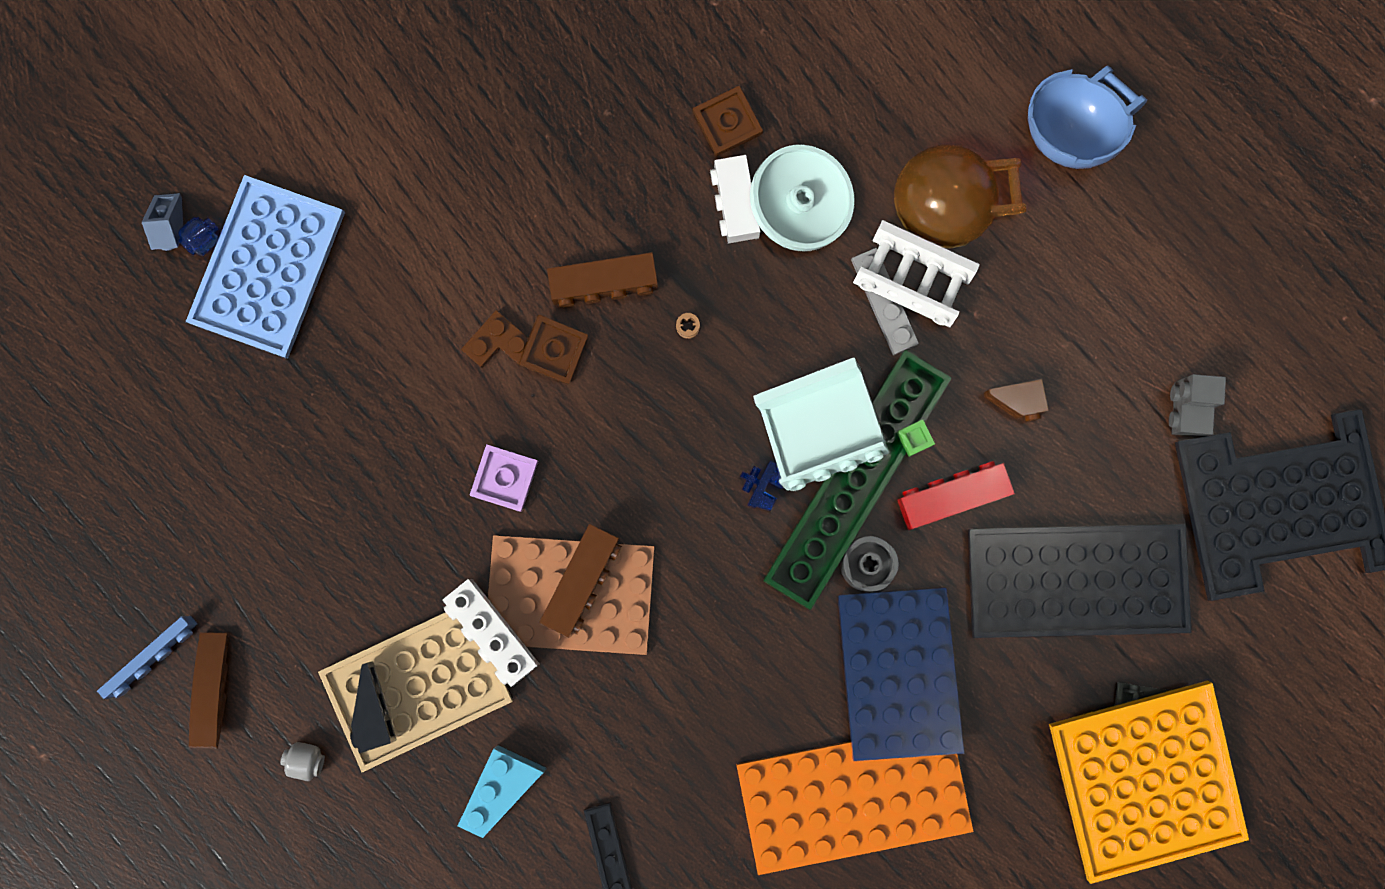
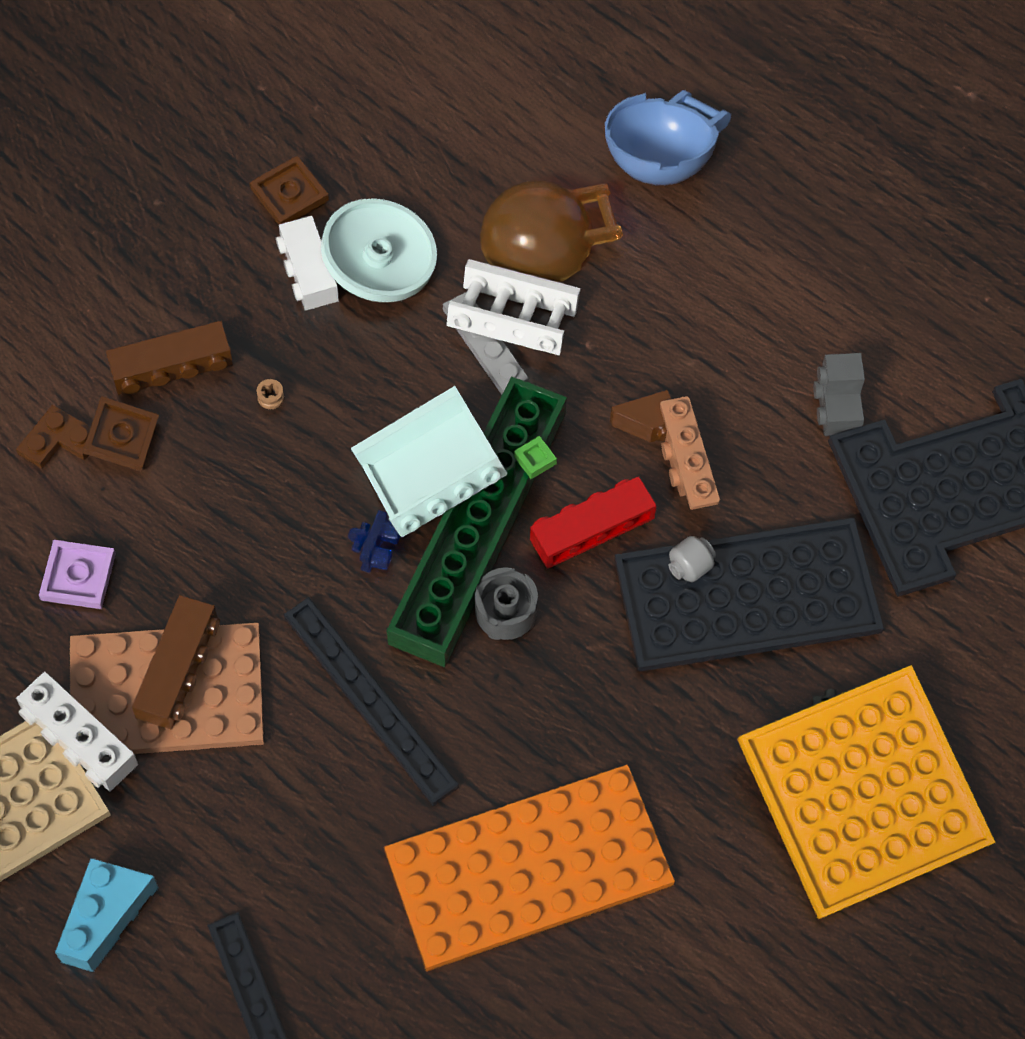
camera: 10 degrees left, 20 degrees down
(741, 630) = (371, 702): none -> black tile
(900, 674) = (560, 720): dark blue plate -> none
(1037, 548) = (691, 558): none -> light grey head
(1049, 445) = (687, 454): none -> nougat bracket

